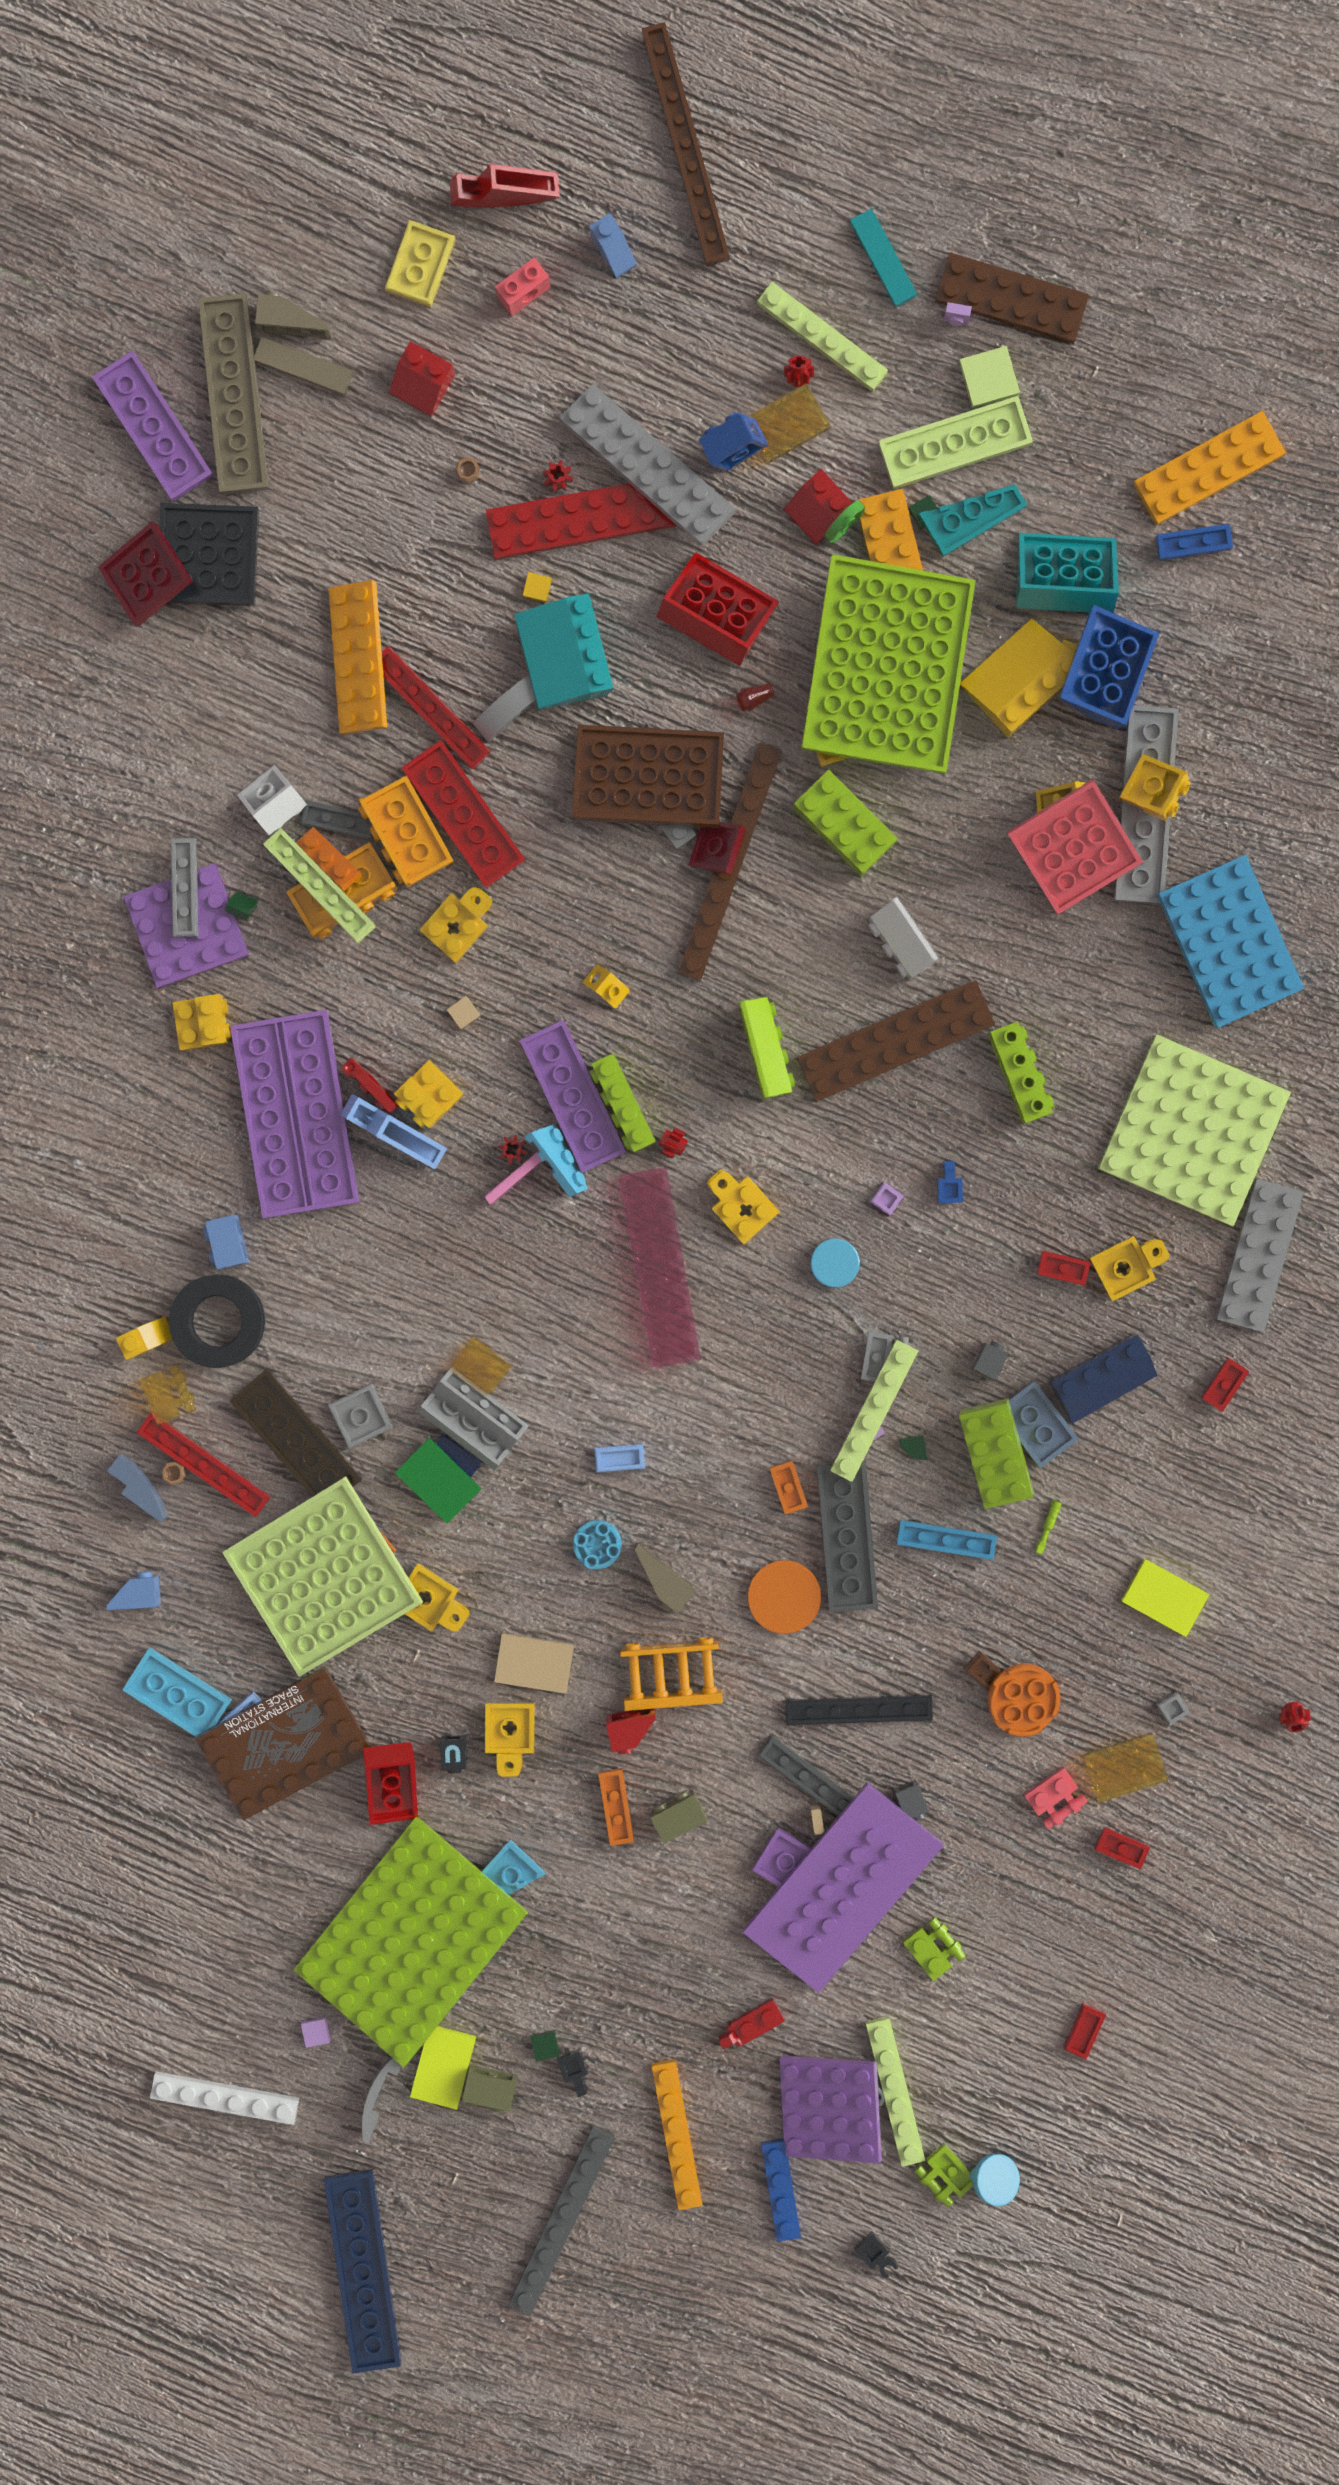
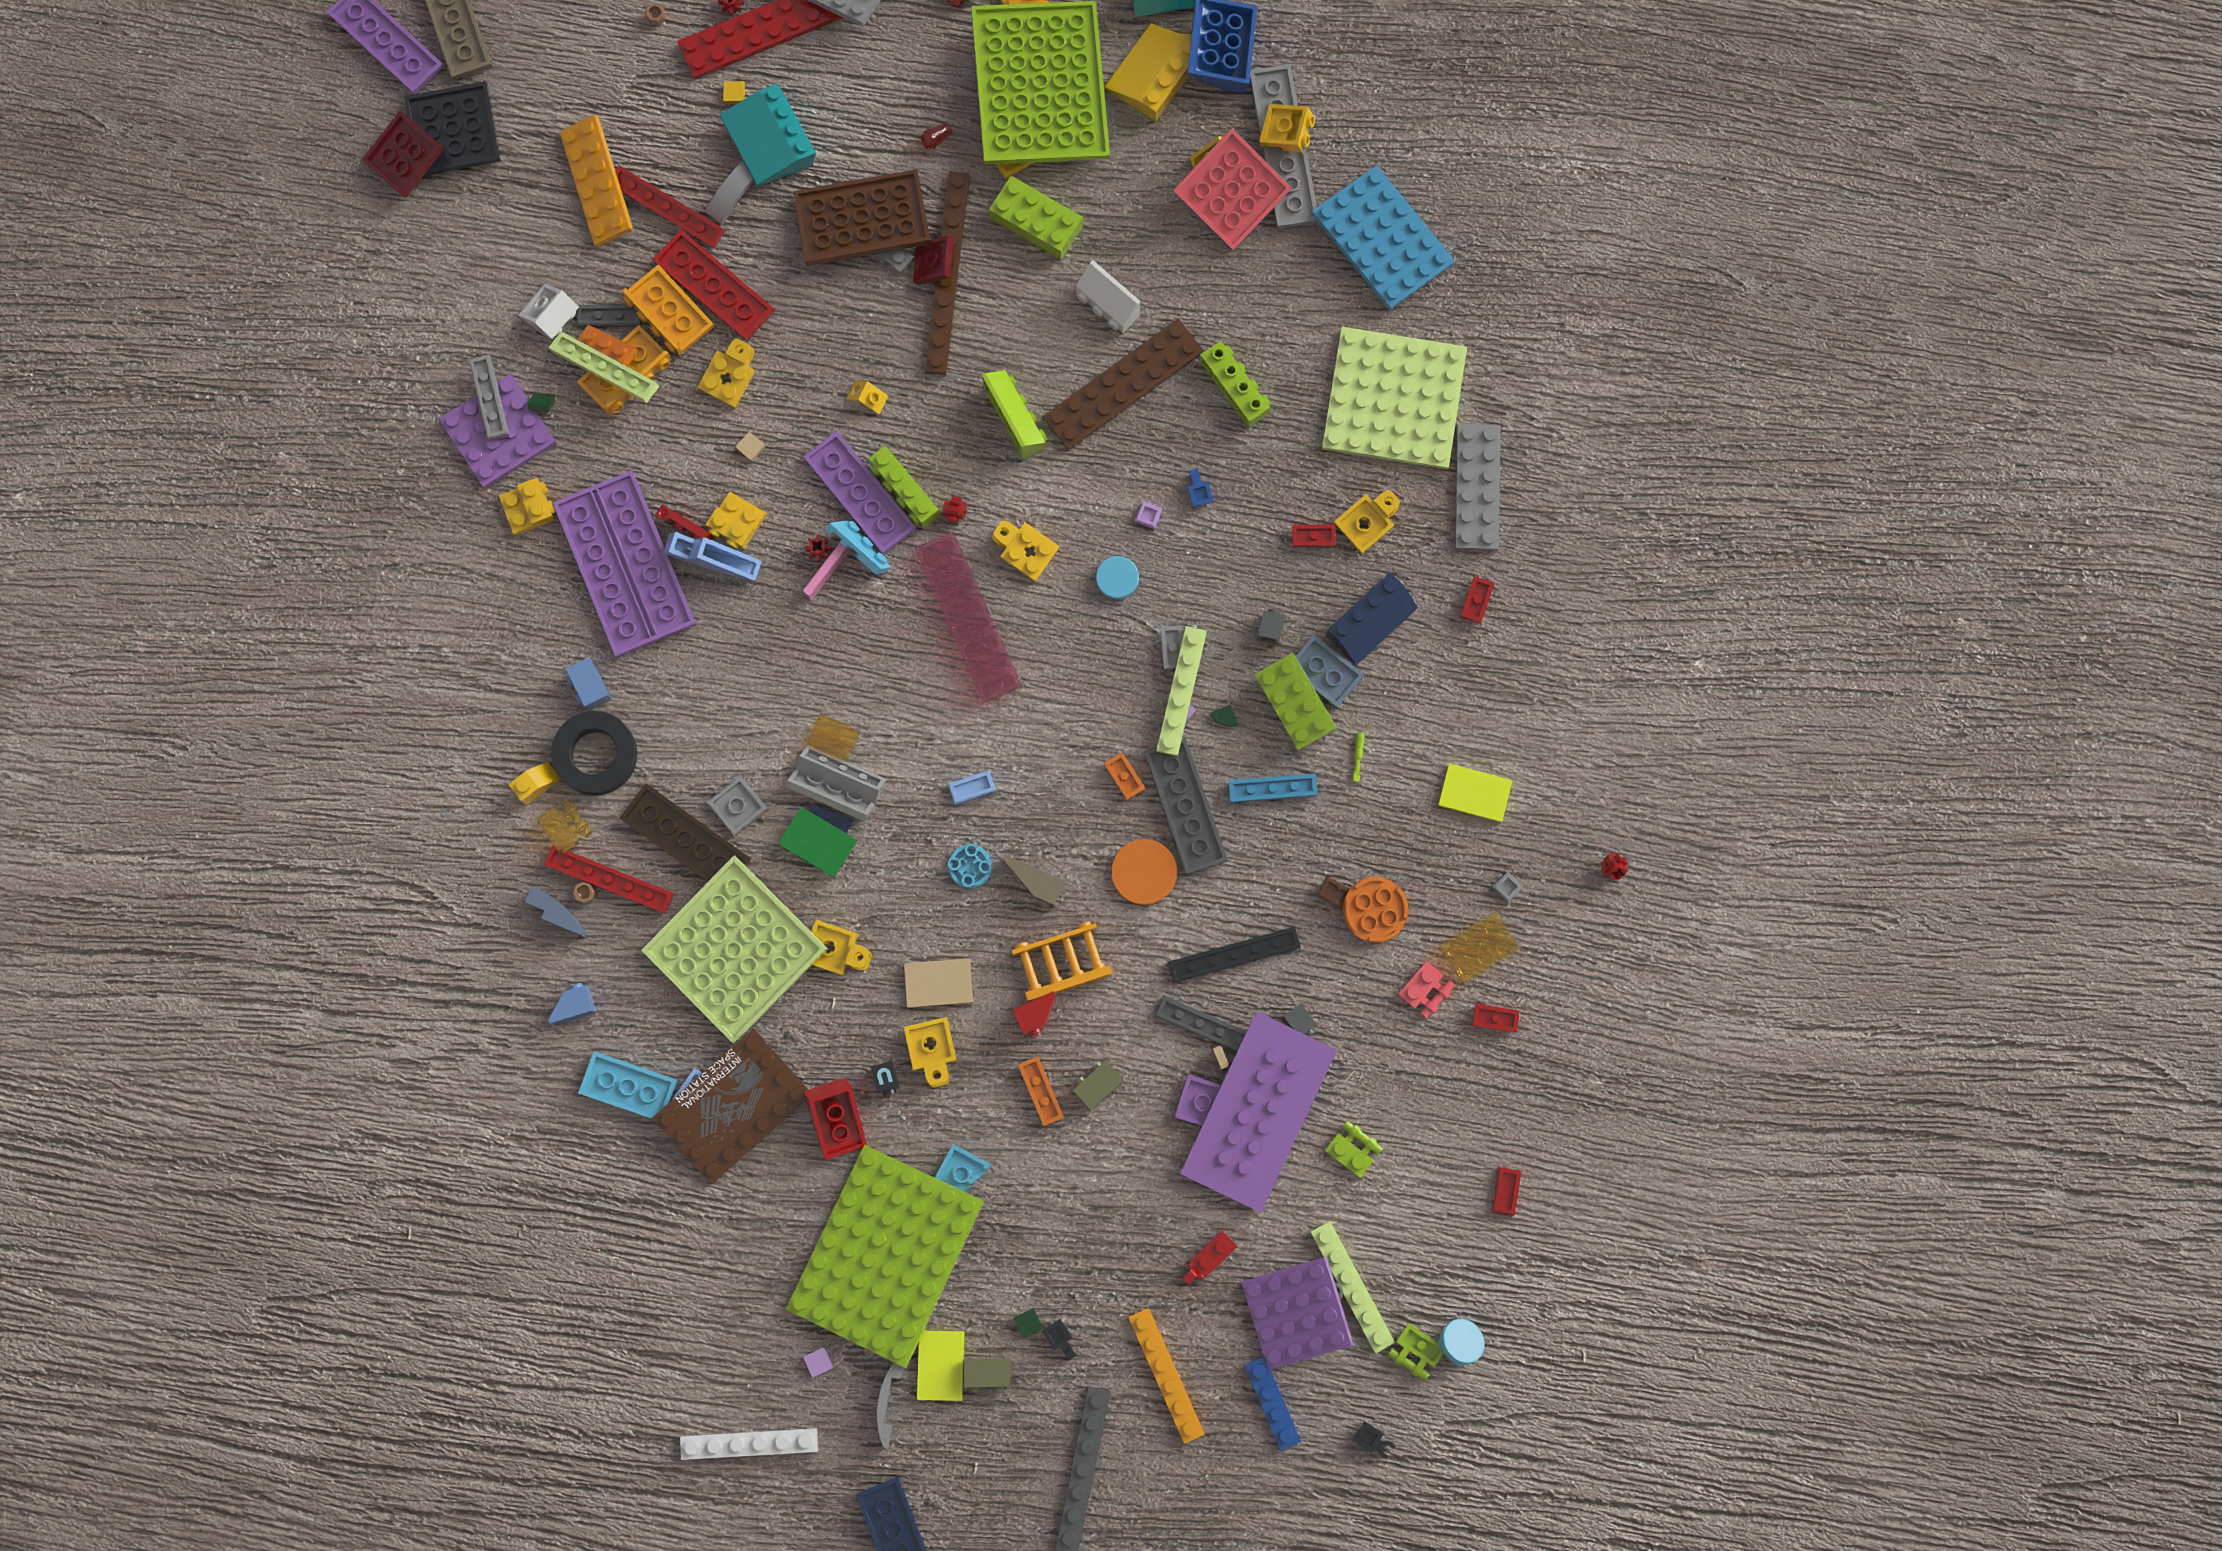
camera: 10 degrees left, 10 degrees down
(717, 608) = (887, 74): red slope -> none

